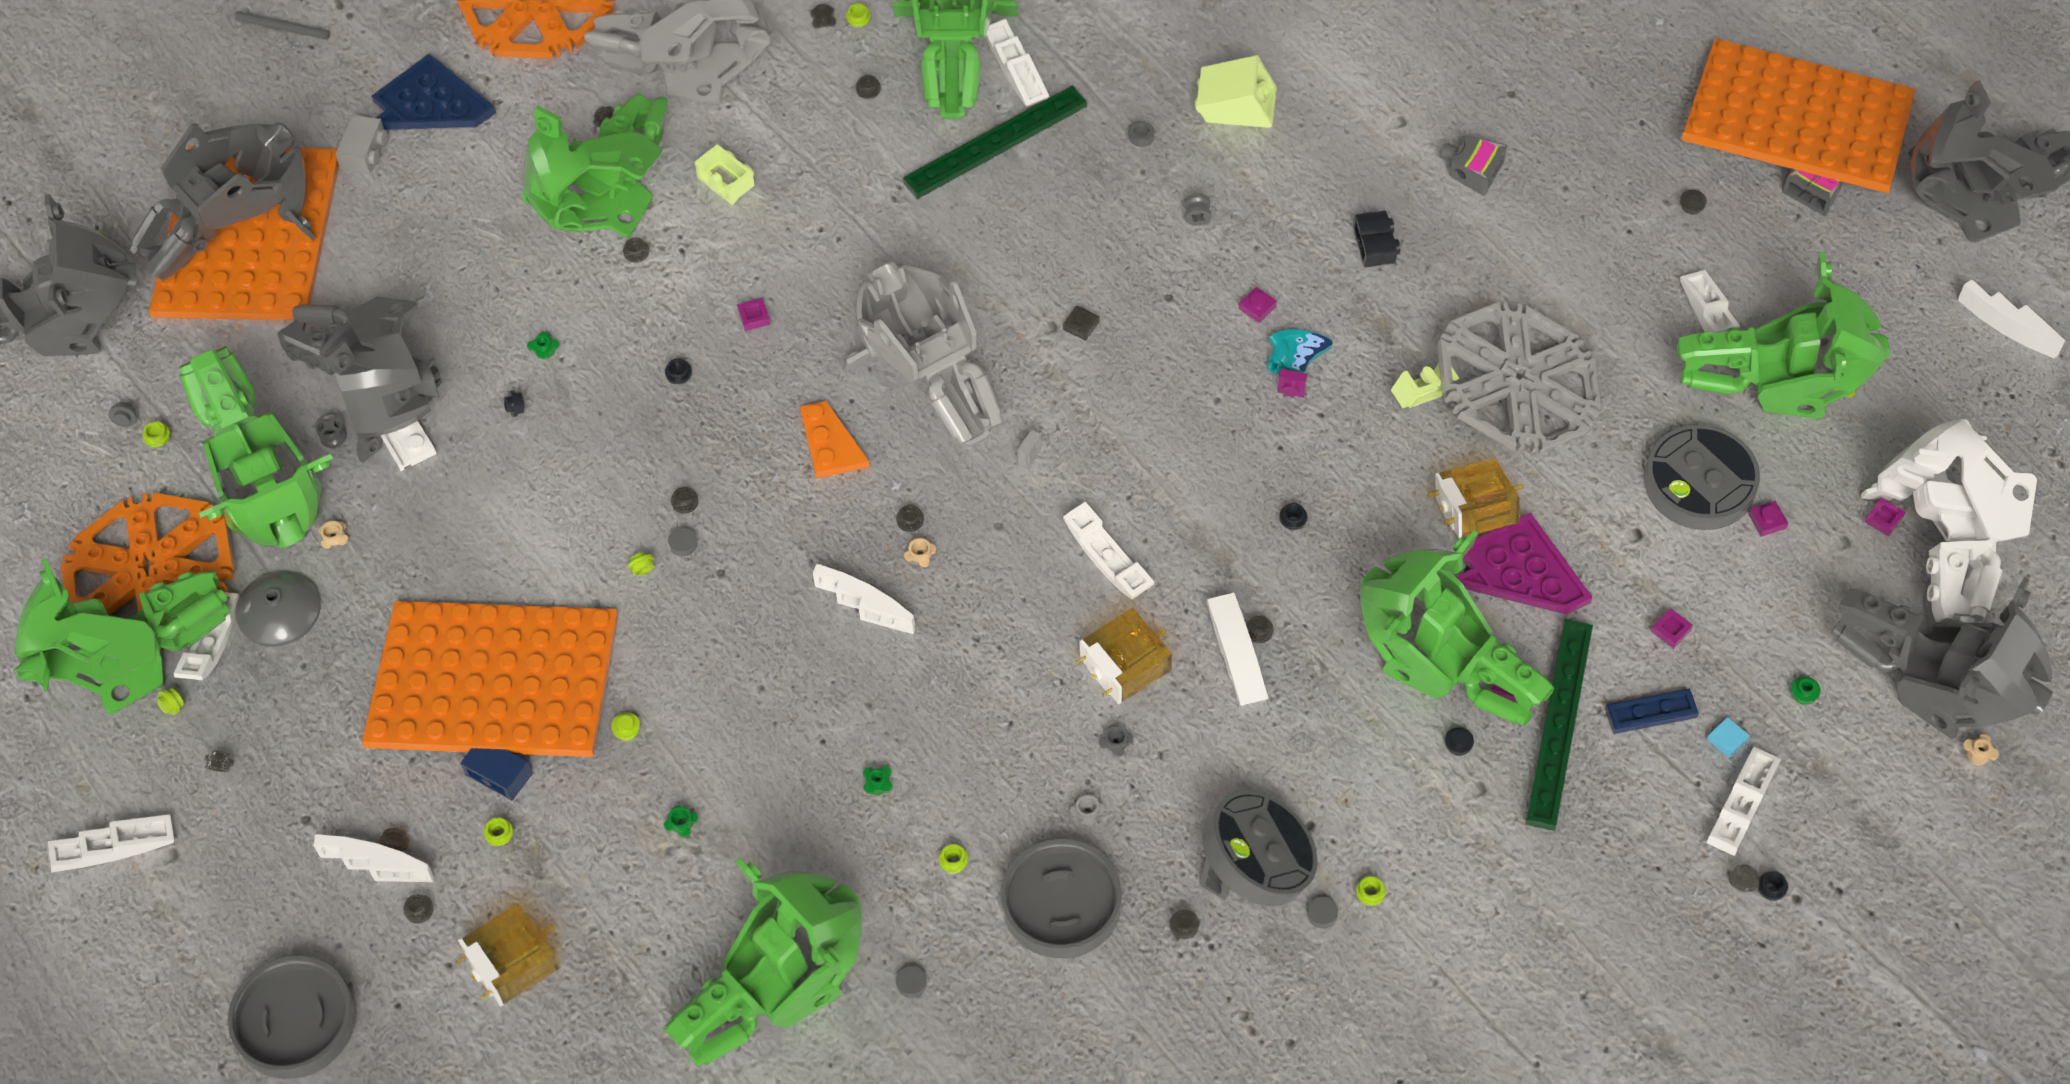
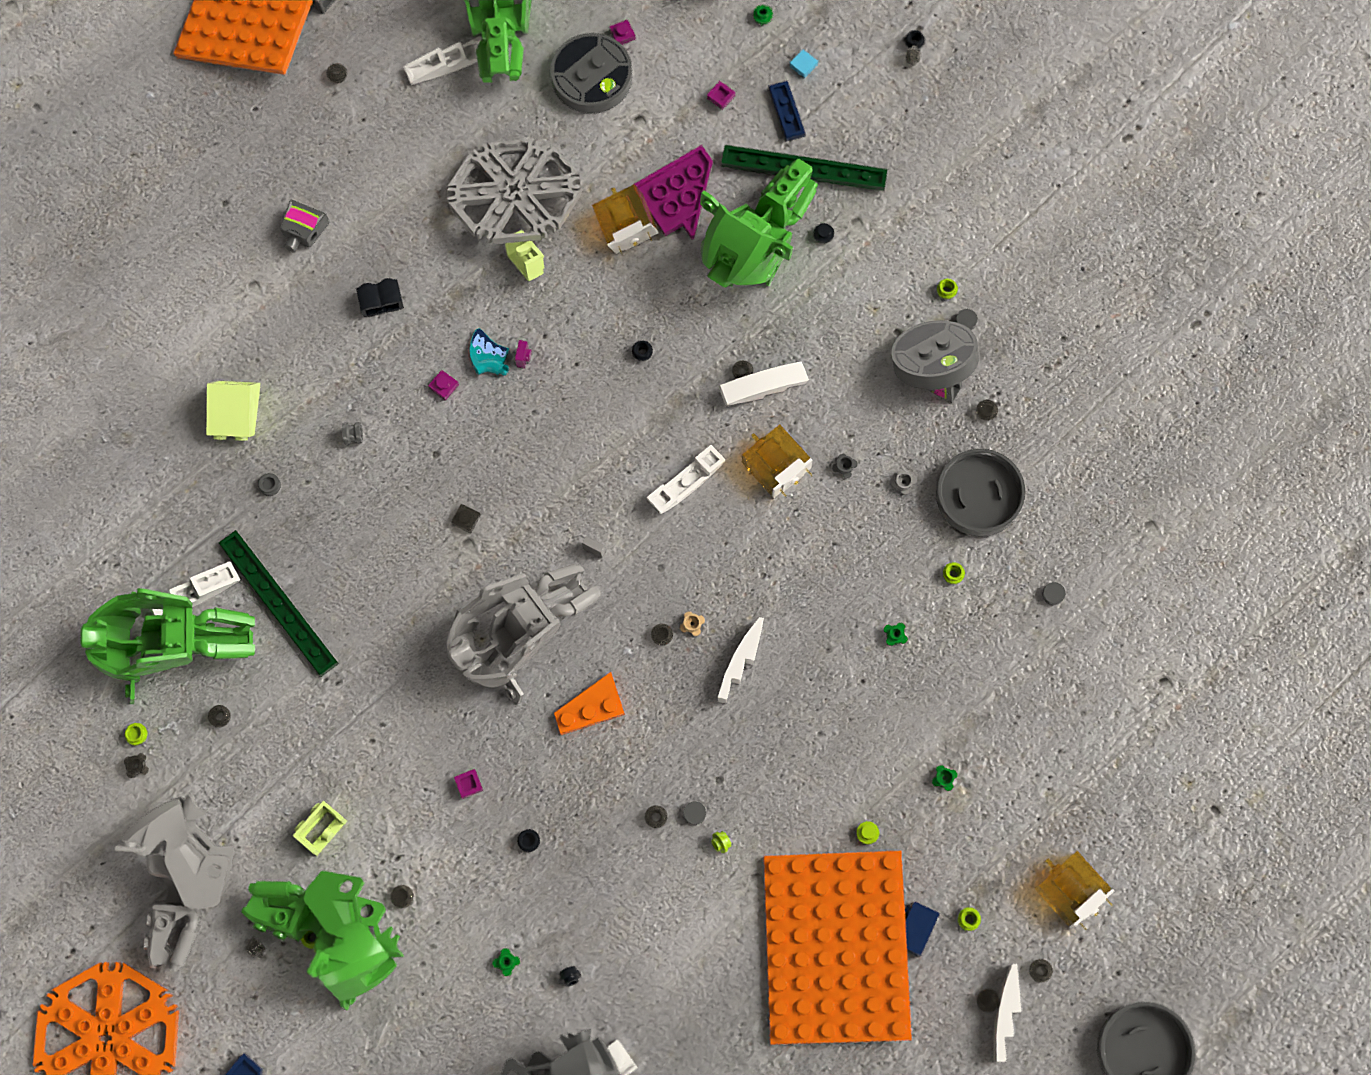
camera: 95 degrees left, 15 degrees up
(769, 962) = (1077, 685): bright green piece -> none
(1743, 801) = (856, 56): white slope -> none

